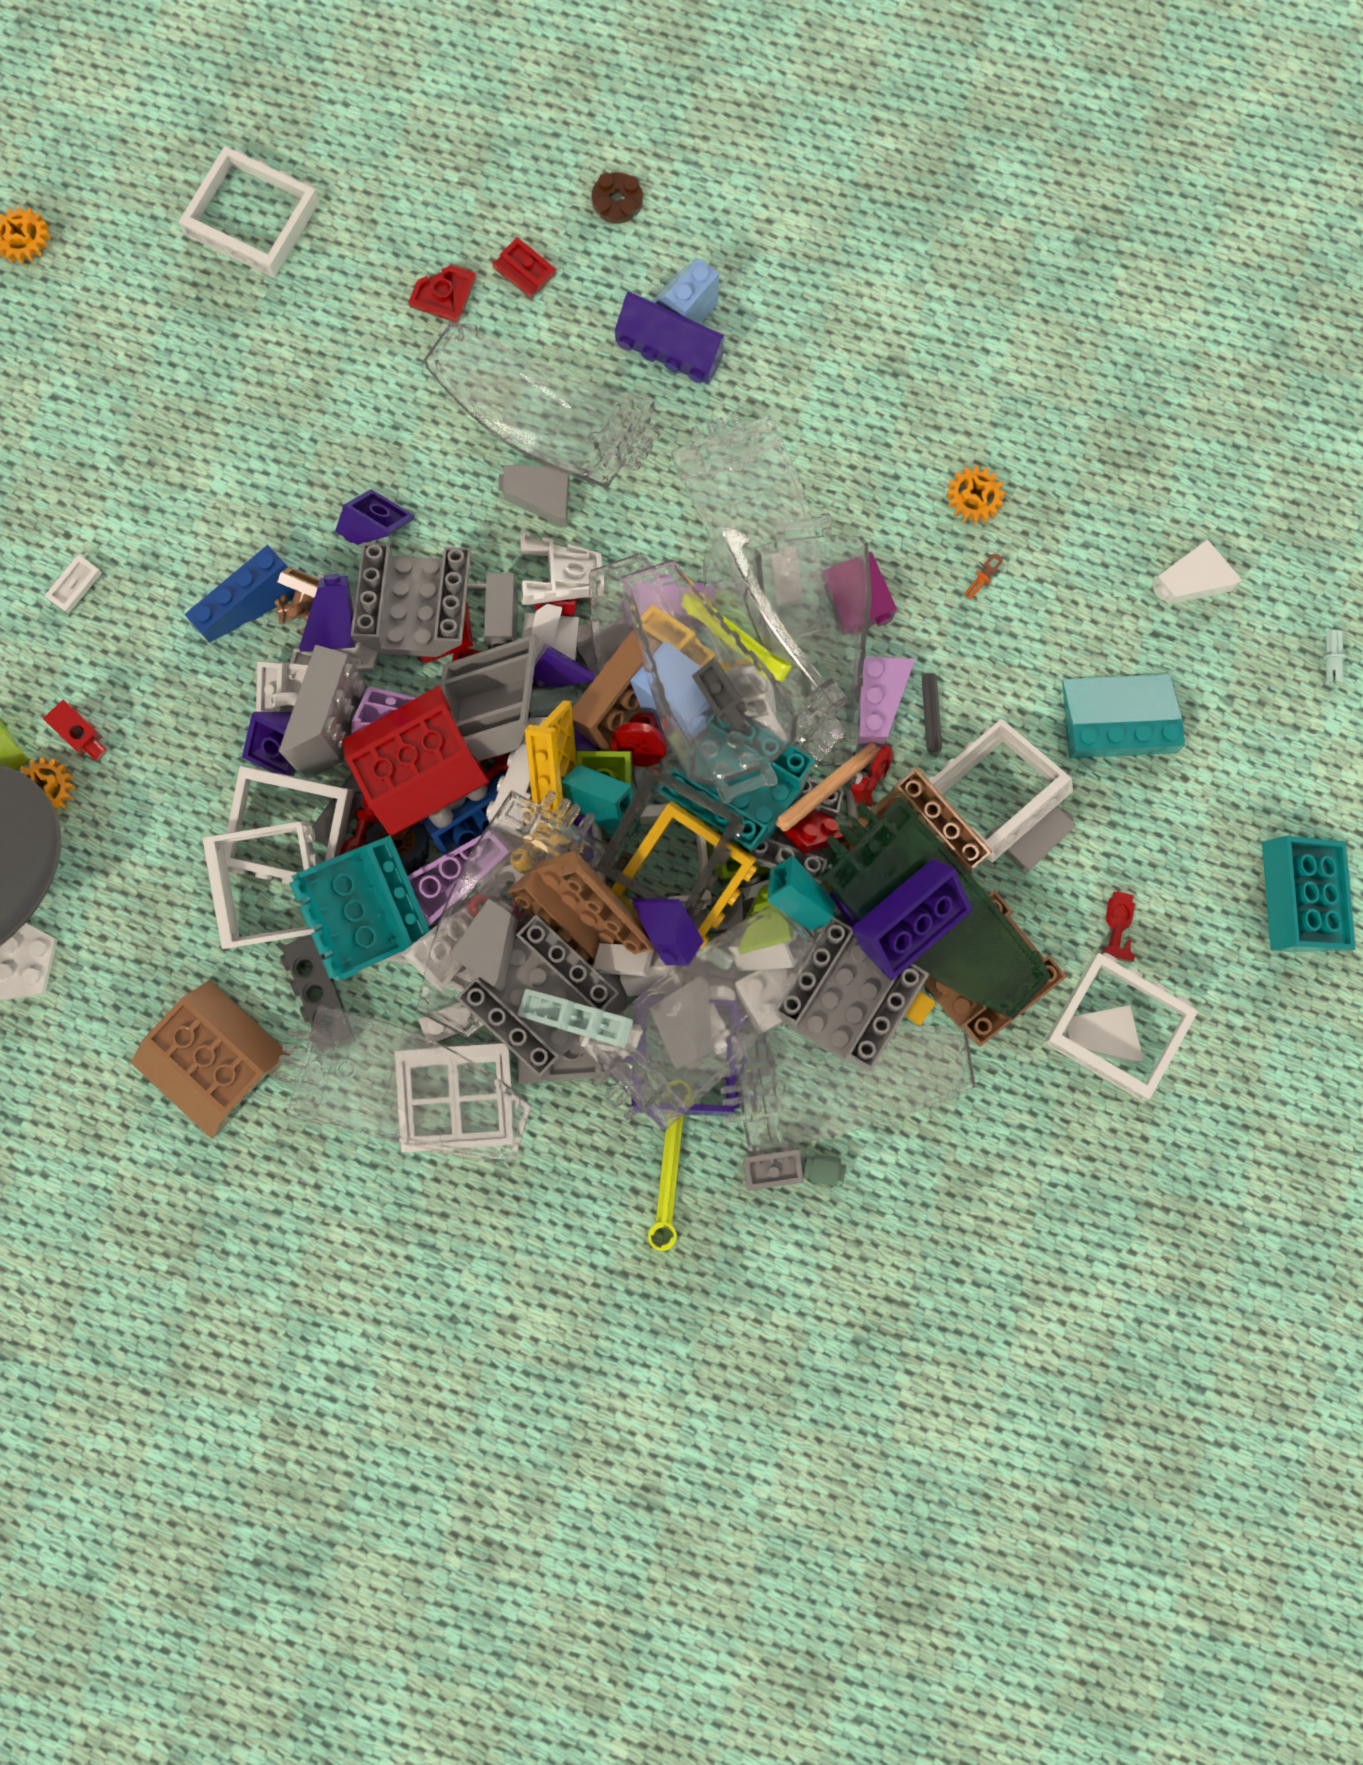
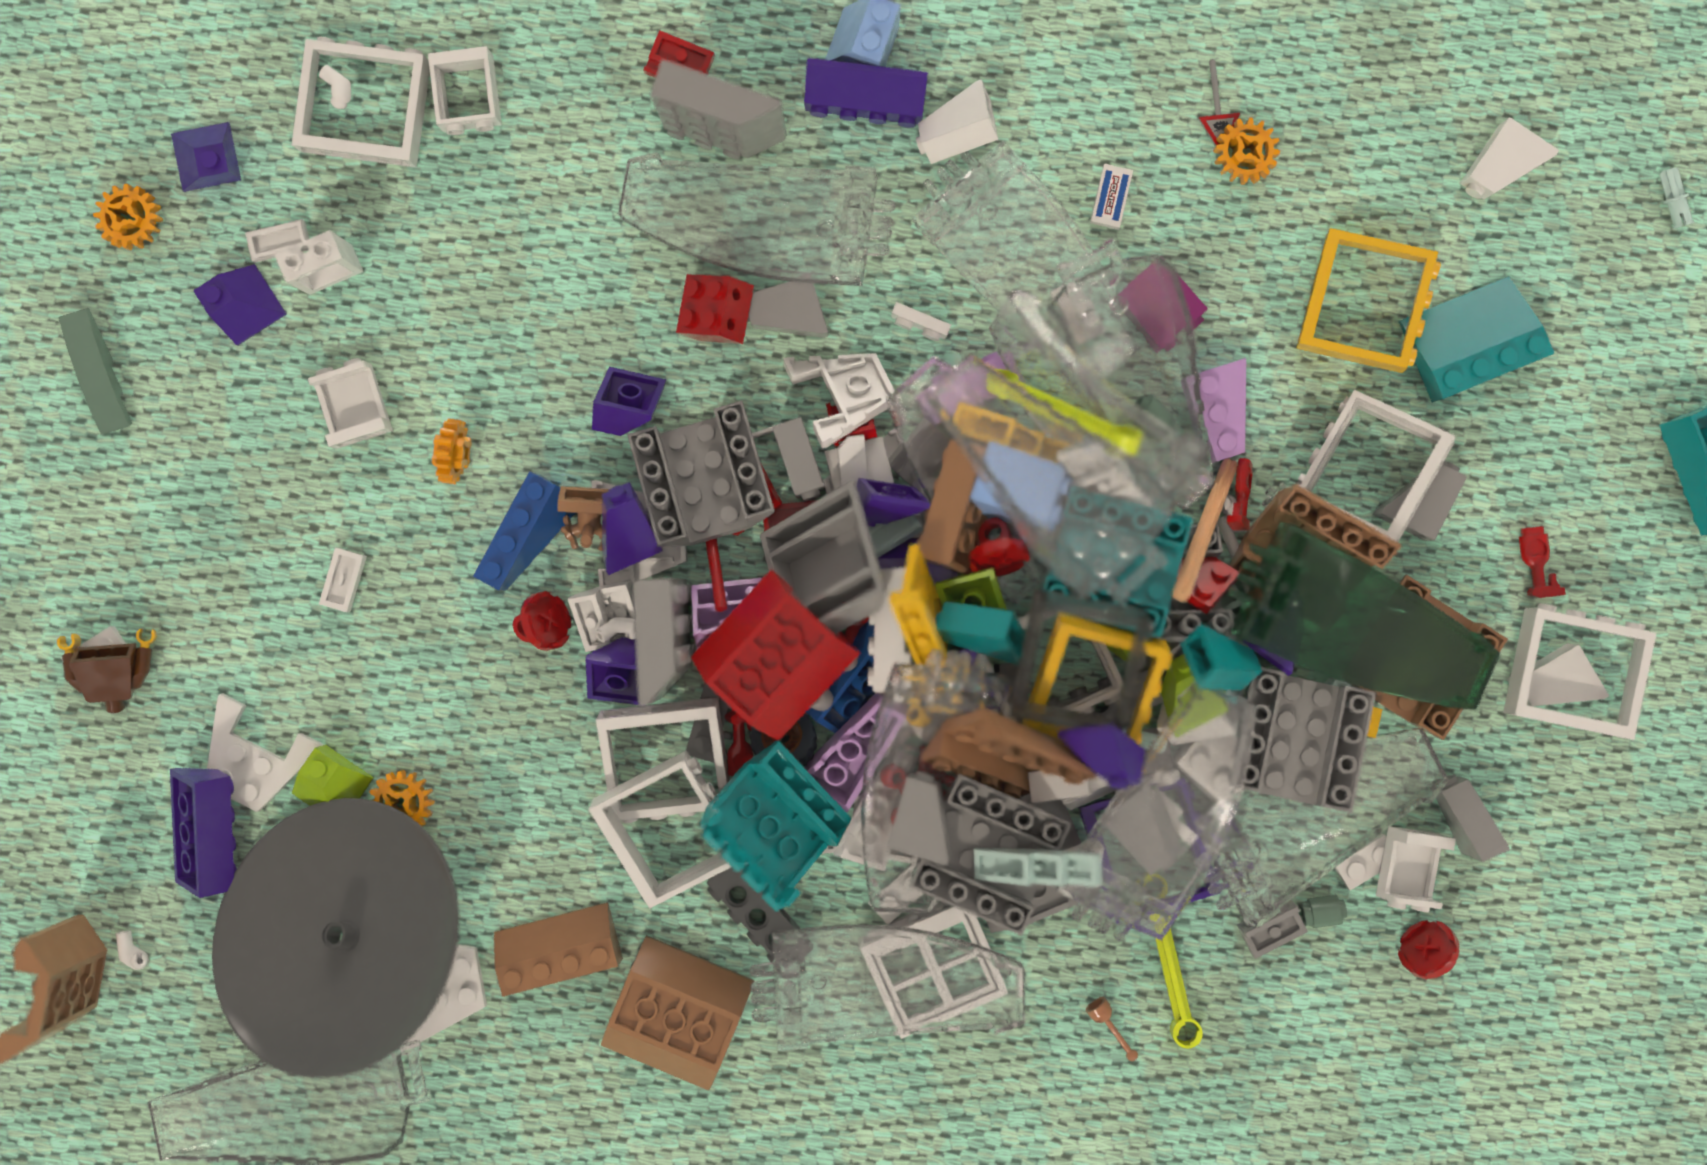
camera: 20 degrees left, 10 degrees up
(69, 724) = (398, 732): red torso -> none
(83, 332) = (240, 302): none -> dark purple slope
(104, 212) = (206, 156): none -> dark purple slope
(126, 963) = (556, 949): none -> medium nougat slope
(136, 296) = (271, 240): none -> white tile
(141, 443) = (351, 403): none -> white panel
(151, 319) = (325, 263): none -> white window
(208, 506) = (451, 451): none -> light orange gear
(229, 674) = (543, 621): none -> red tile
(236, 189) = (339, 87): none -> white arm
(343, 206) = (463, 61): none -> white window
(392, 683) = (716, 575): none -> red bar
(443, 293) = (604, 121): red plate -> none
(474, 458) = (715, 308): none -> red piece
(537, 308) = (716, 112): none -> light grey slope
(591, 1193) = (1101, 1012): none -> nougat hinge
(655, 545) = (908, 317): none -> white plate
(722, 695) = (1075, 486): dark grey hinge -> none
(737, 391) = (958, 125): none -> white slope
(848, 494) = (1111, 196): none -> tile
(879, 1140) = (1363, 863): none -> white plate
(908, 1235) = (1428, 949): none -> red tile
(912, 918) = (1341, 642): dark purple slope -> none
(917, 1155) = (1411, 868): none -> white panel
(931, 712) = (1276, 404): dark grey axle -> none
(957, 465) = (1216, 123): none -> piece
(982, 1126) = (1470, 821): none -> light grey slope
(984, 575) = (1283, 237): piece -> none
(1045, 709) = (1415, 325): none -> yellow window

